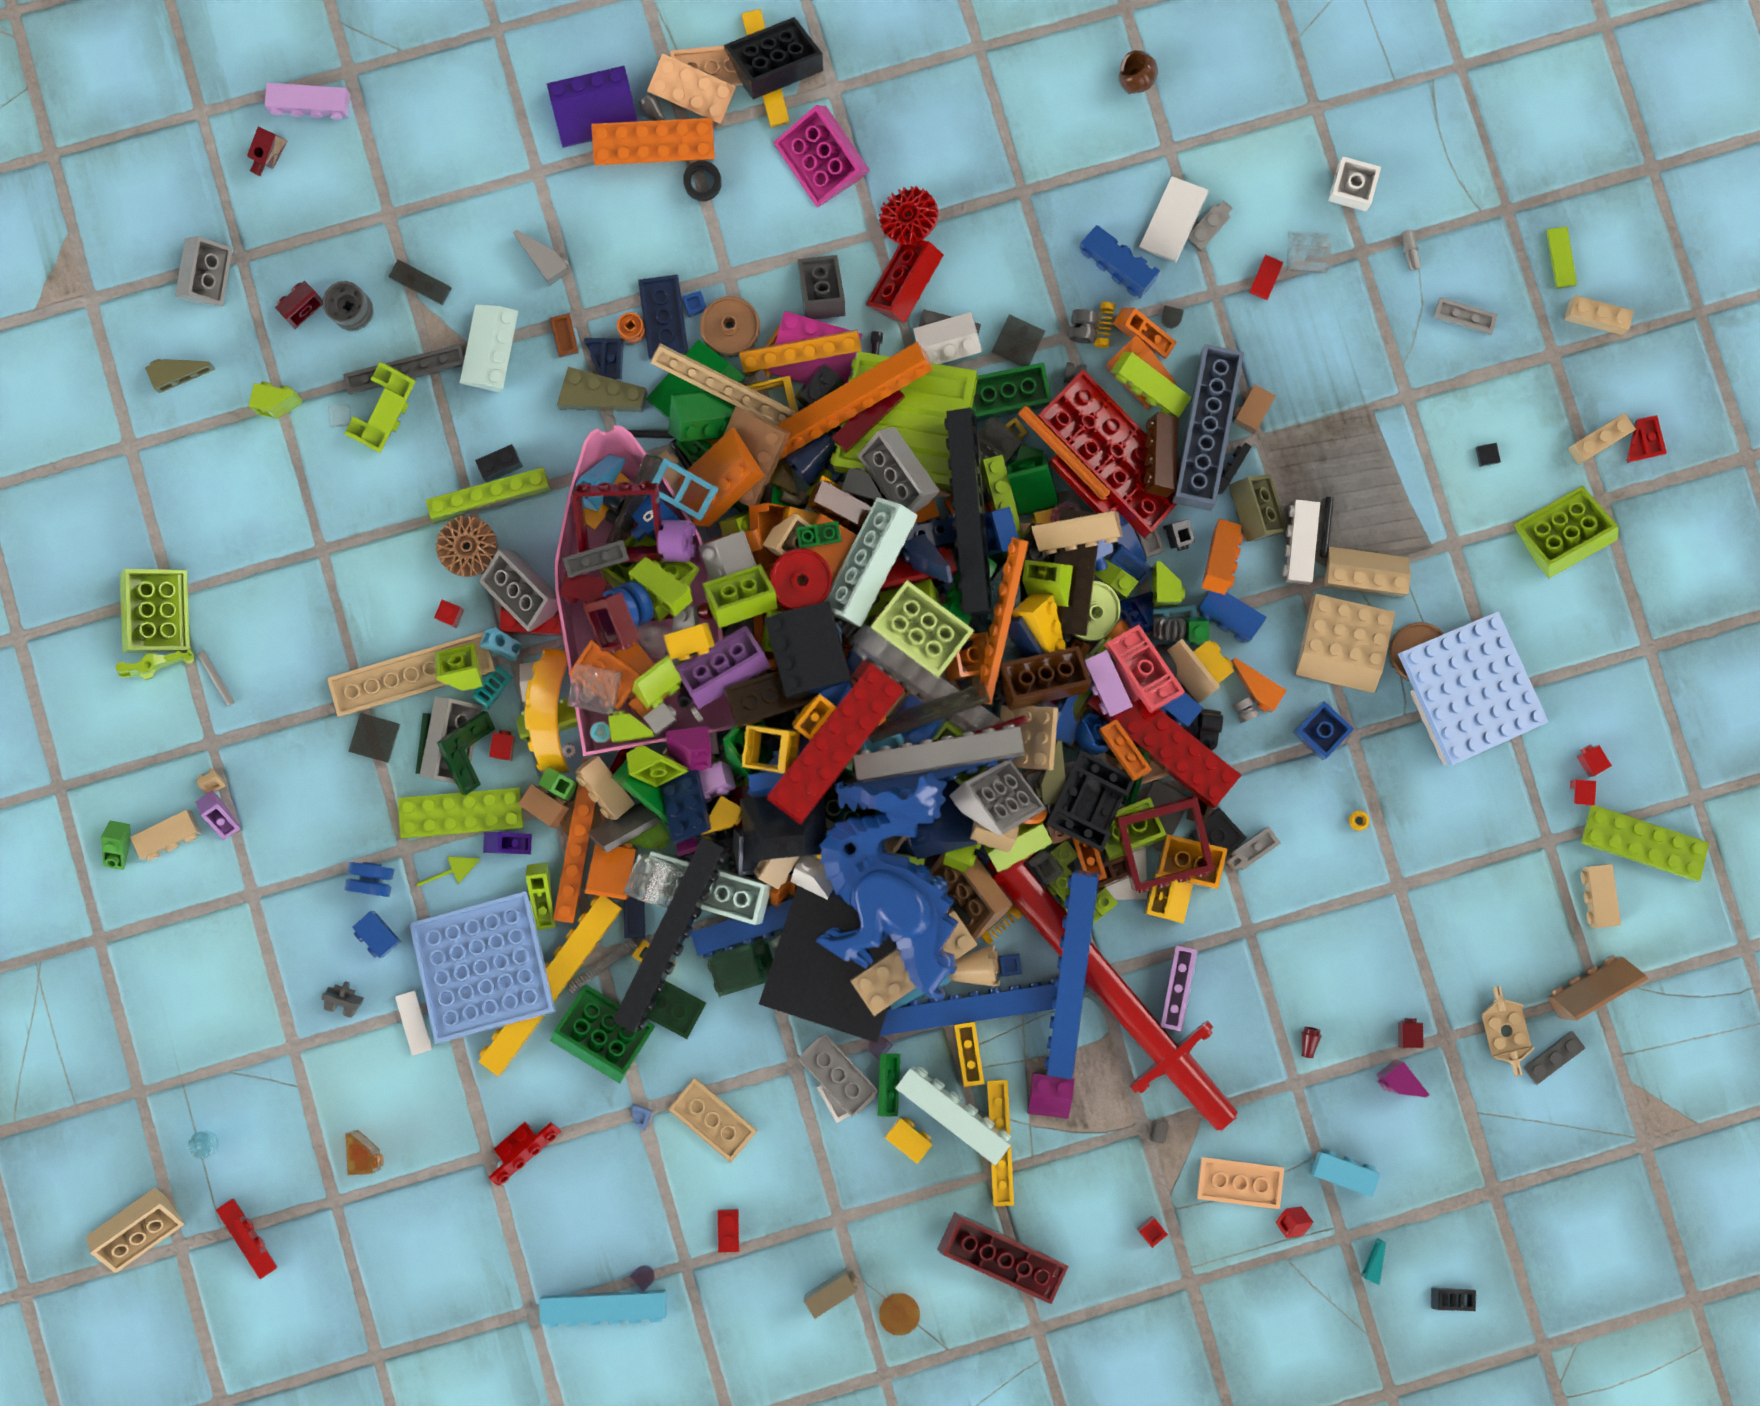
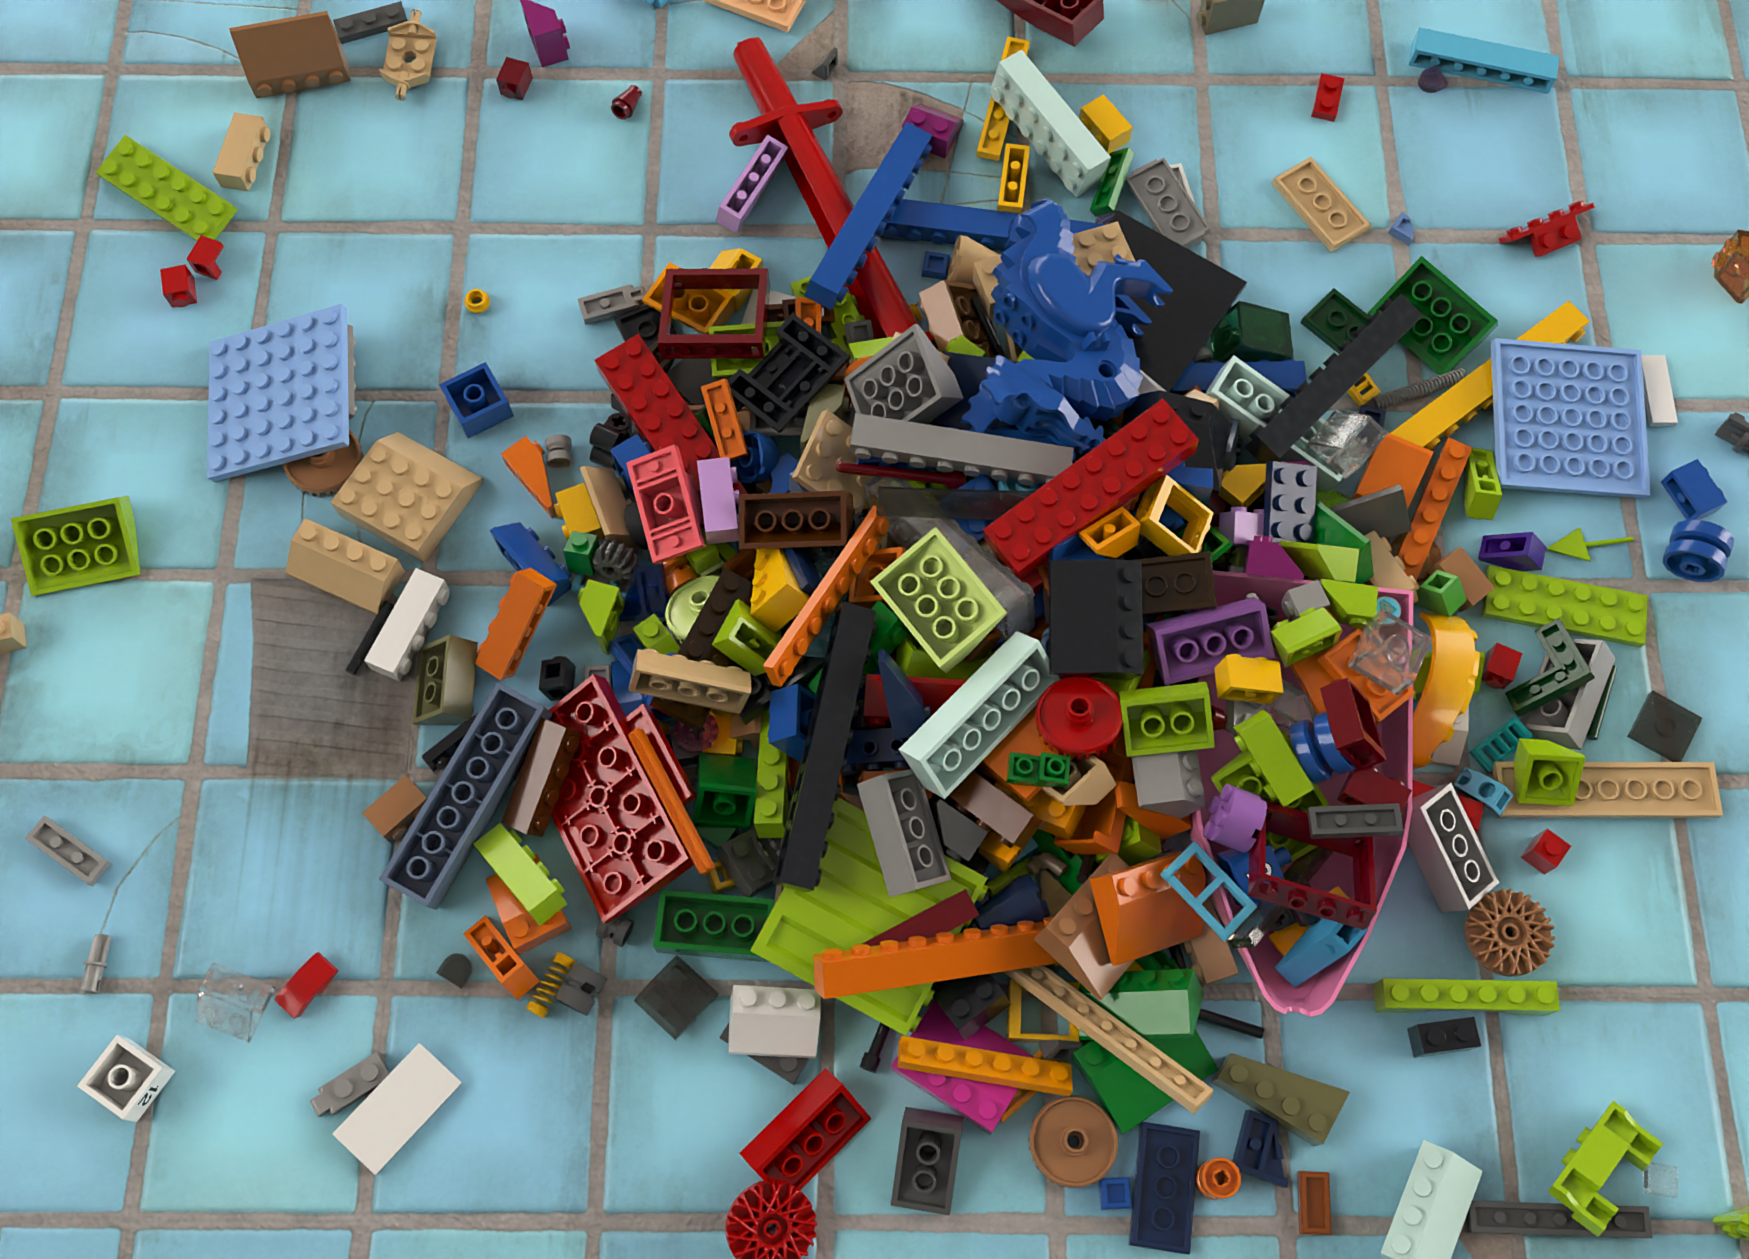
camera: 160 degrees left, 15 degrees down
(1119, 262) = (497, 1065): blue wedge -> none
(1488, 454) = (128, 666): black tile -> none

